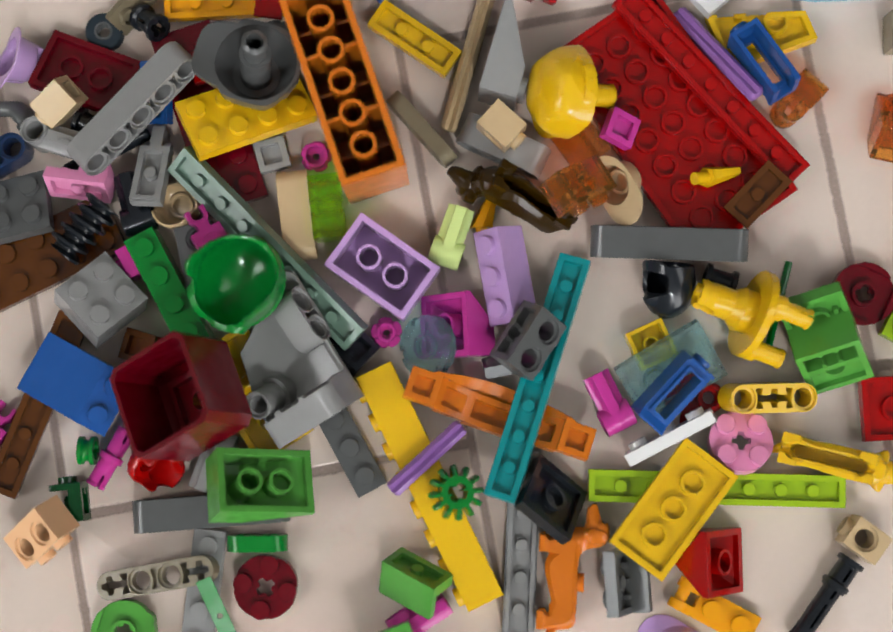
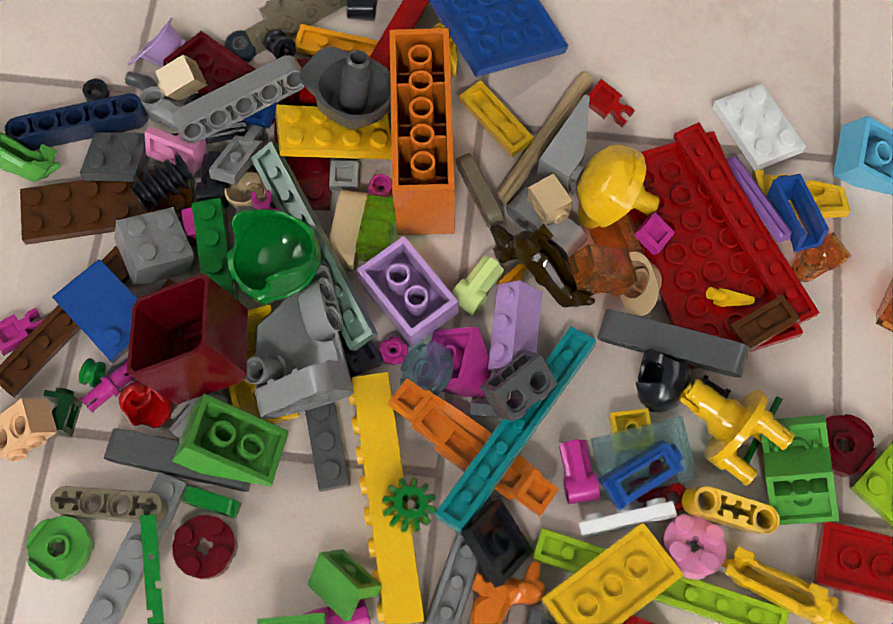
camera: 15 degrees right, 15 degrees down
(426, 458) = (392, 466): medium lavender axle -> none

